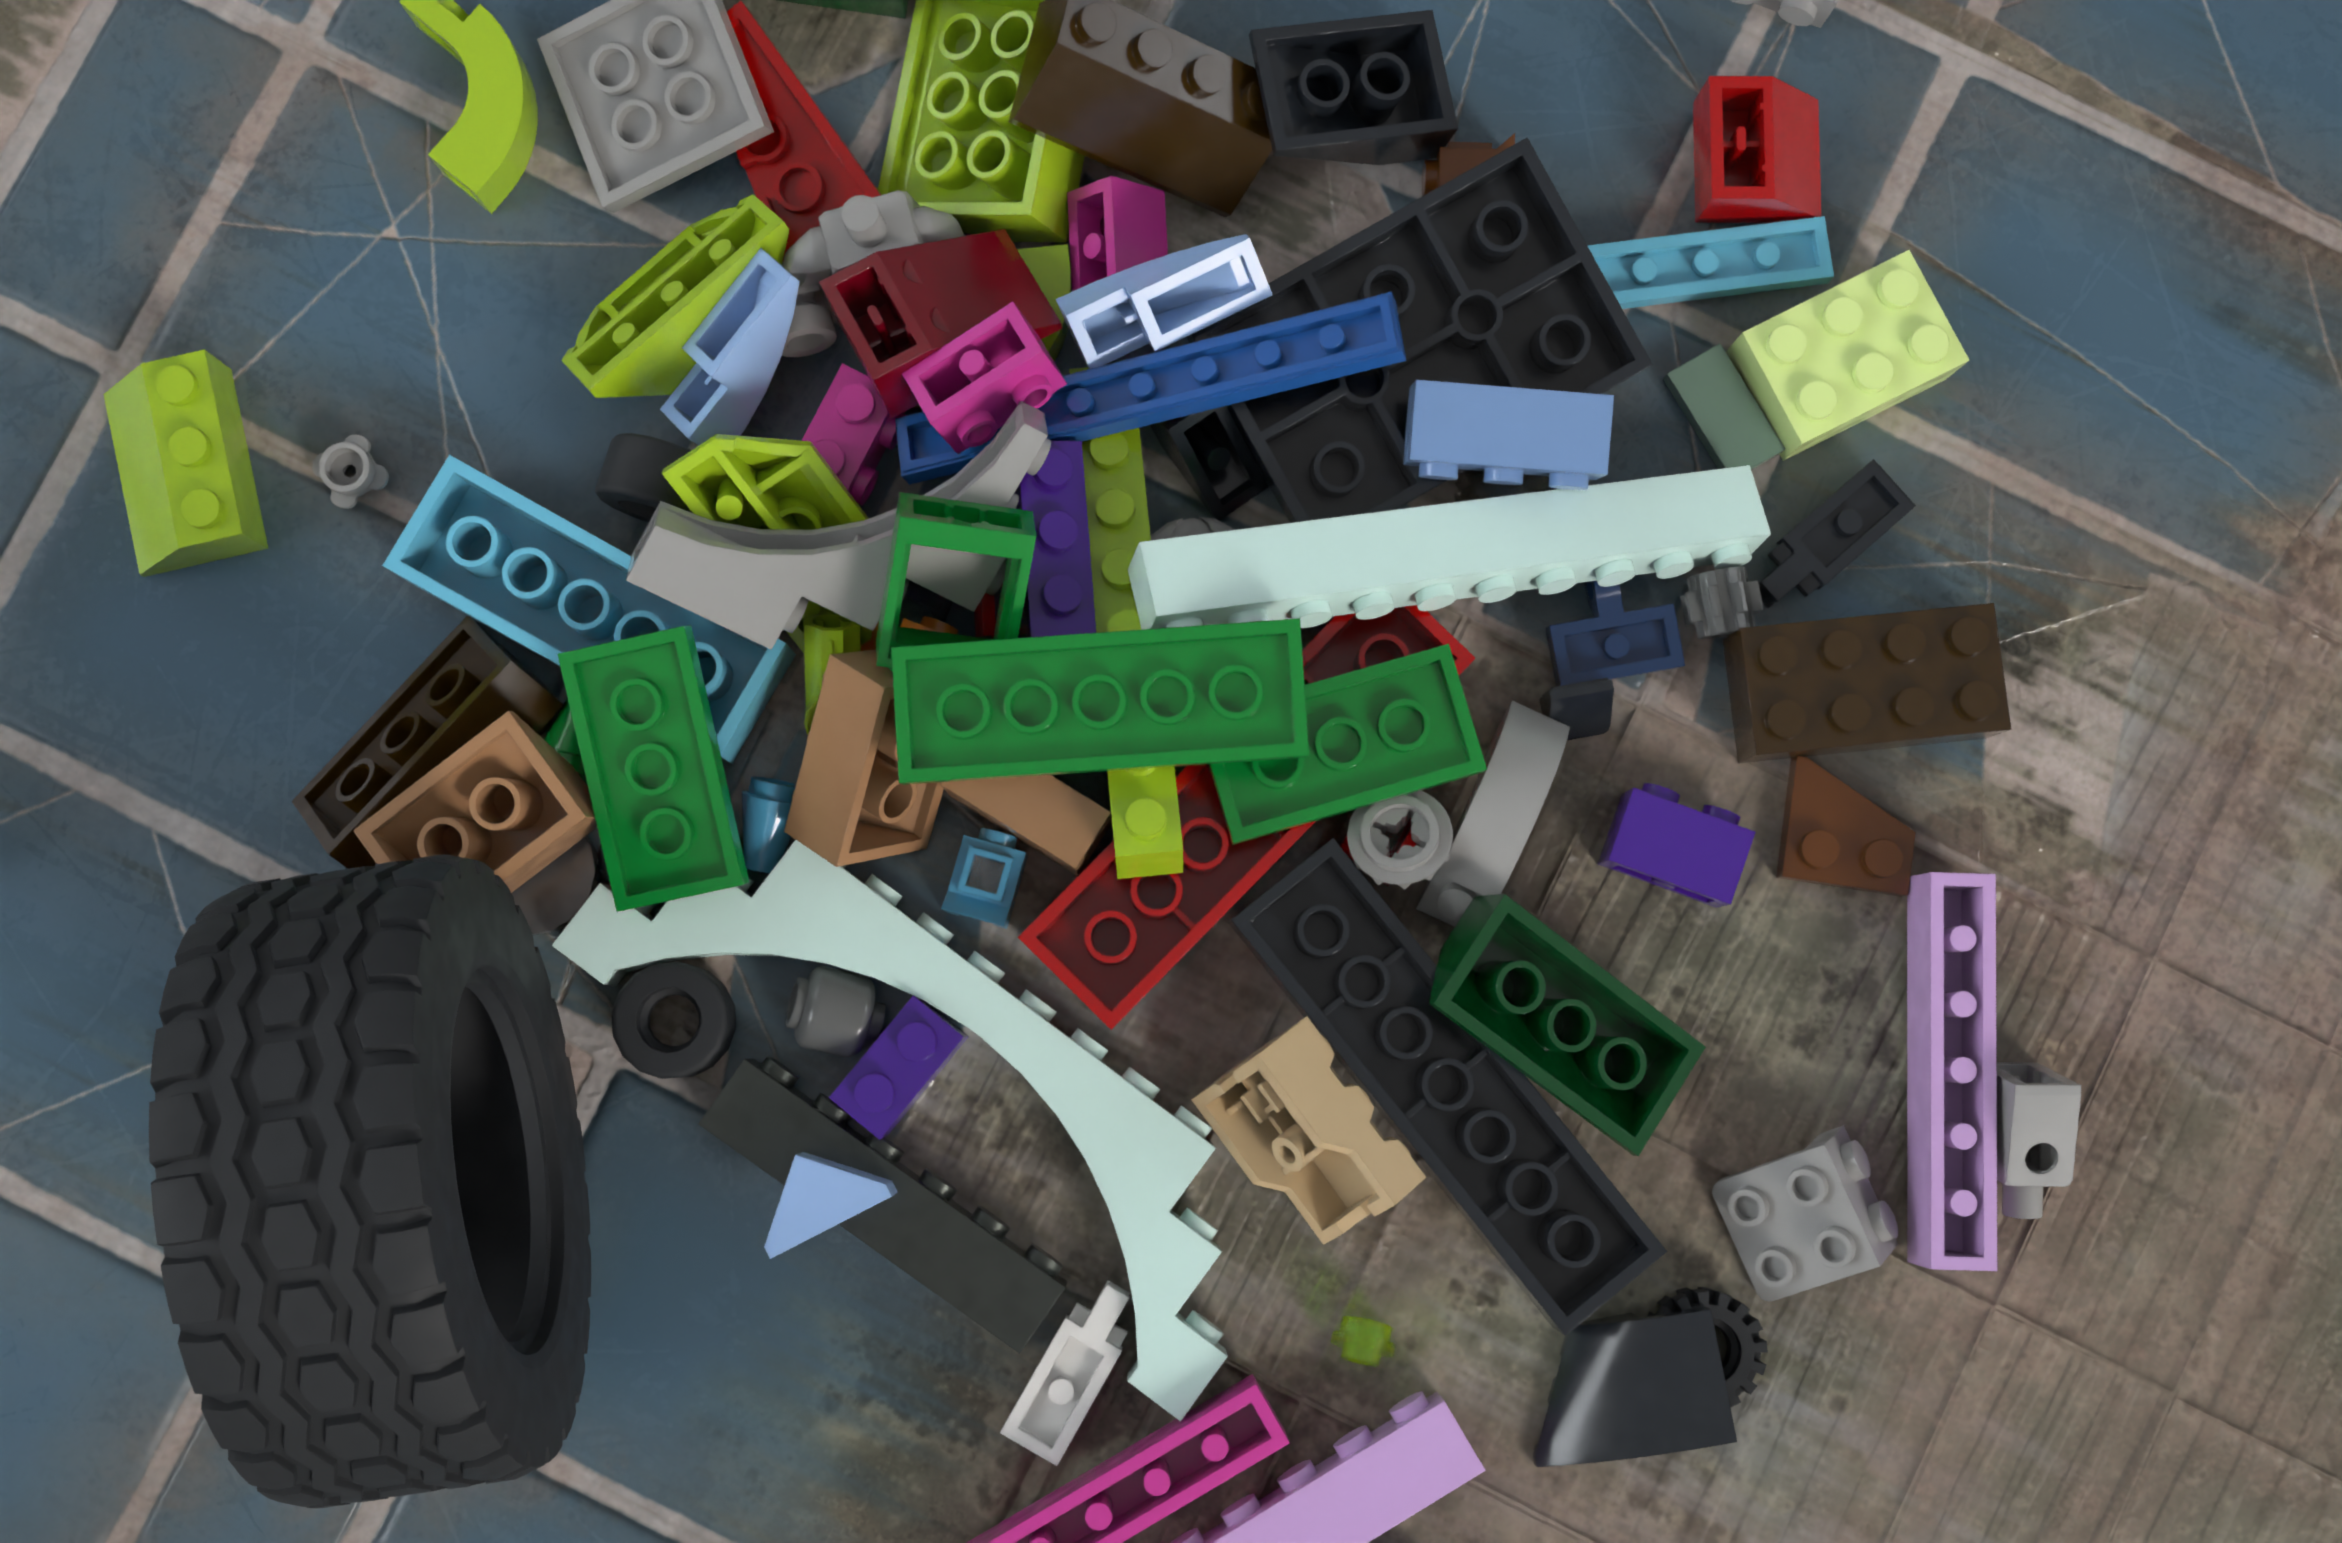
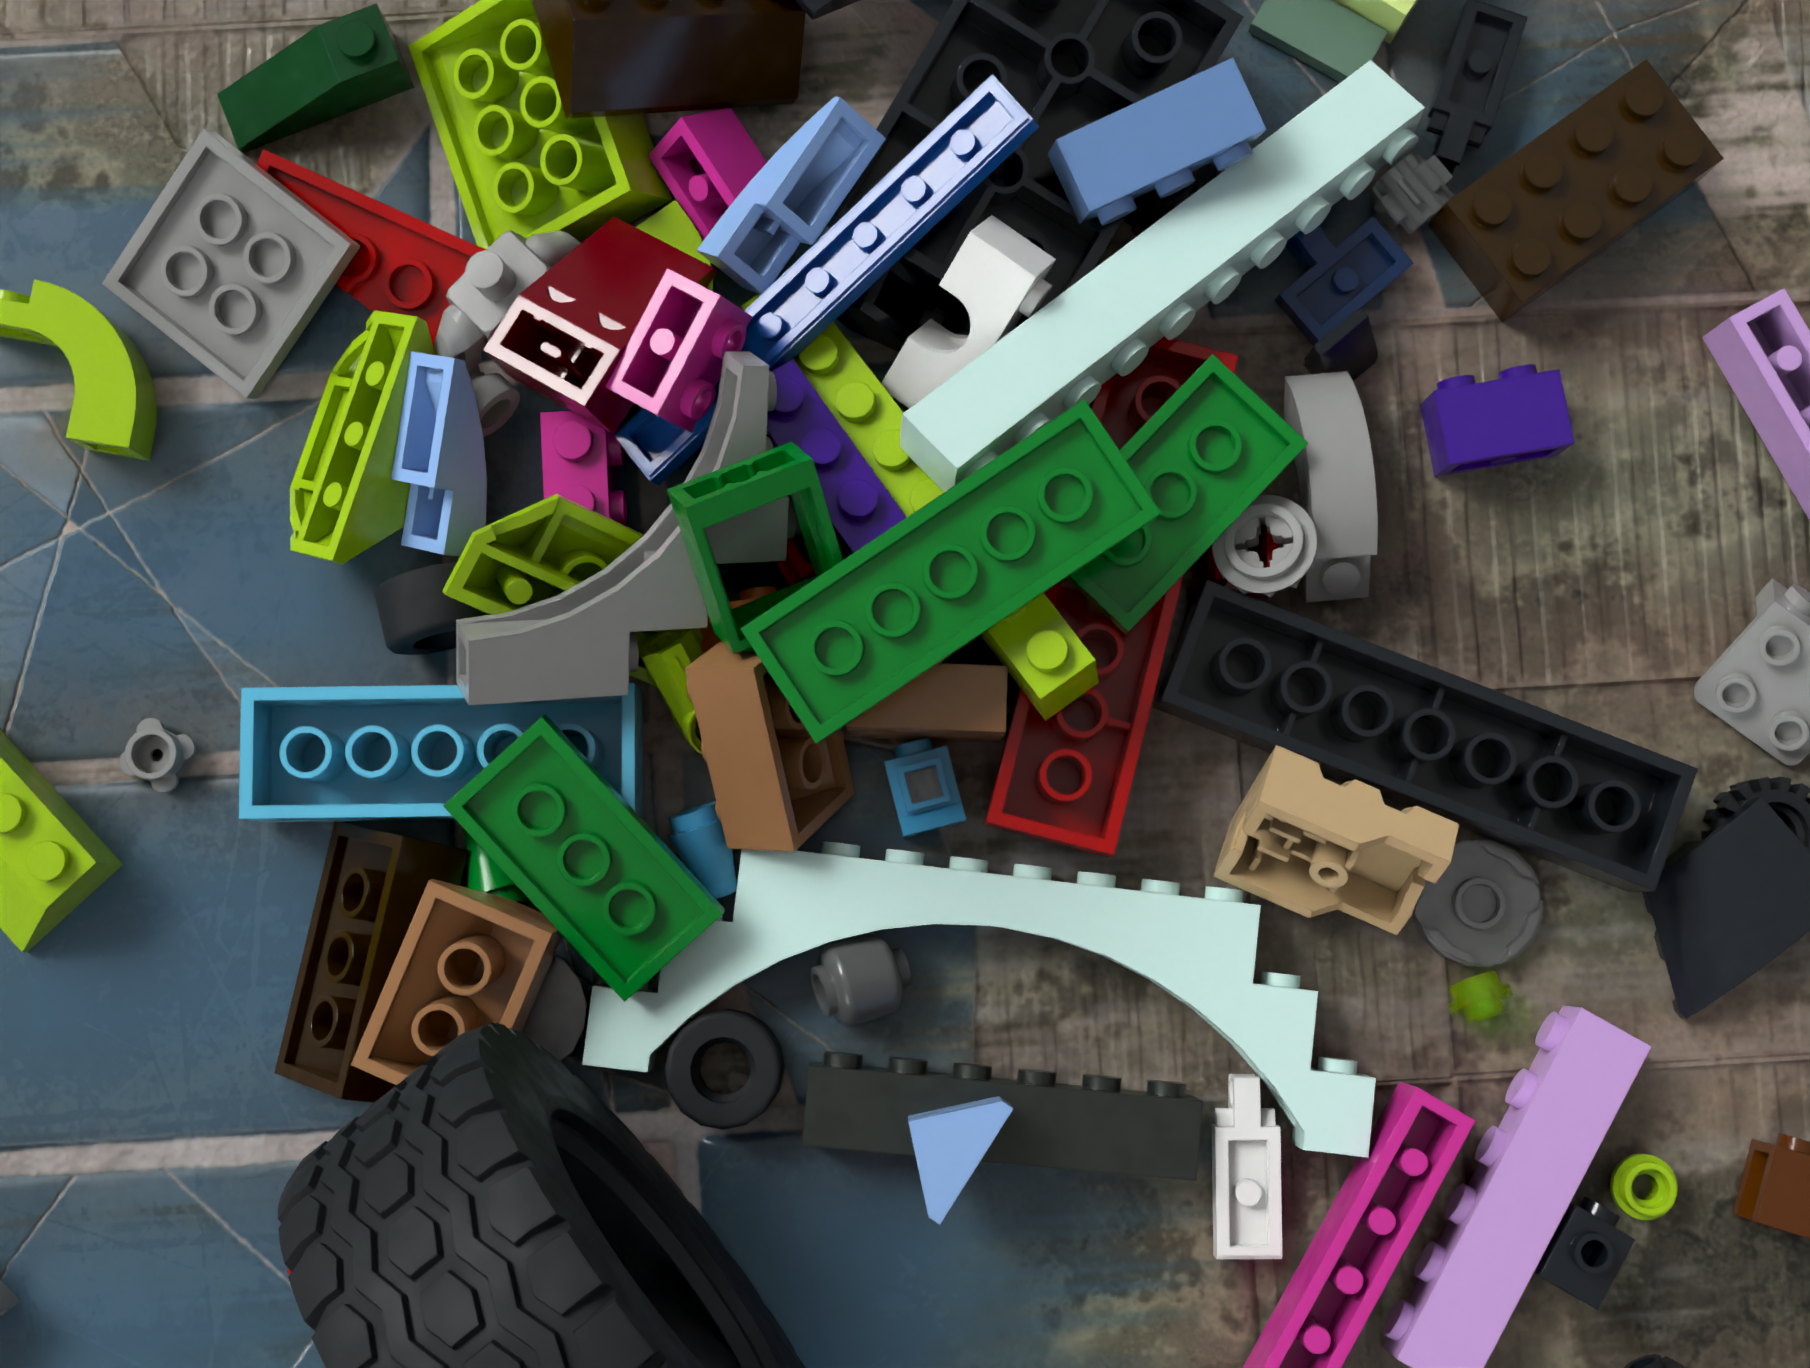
camera: 25 degrees left, 0 degrees up
(898, 1067) = (945, 995): dark purple brick -> none
(1295, 476) = (997, 281): none -> white arch
(1413, 1260) = (1480, 906): none -> flat silver tile
(1562, 1020) = (1493, 621): dark green slope -> none
(1841, 836) = (1626, 334): reddish brown wing -> none

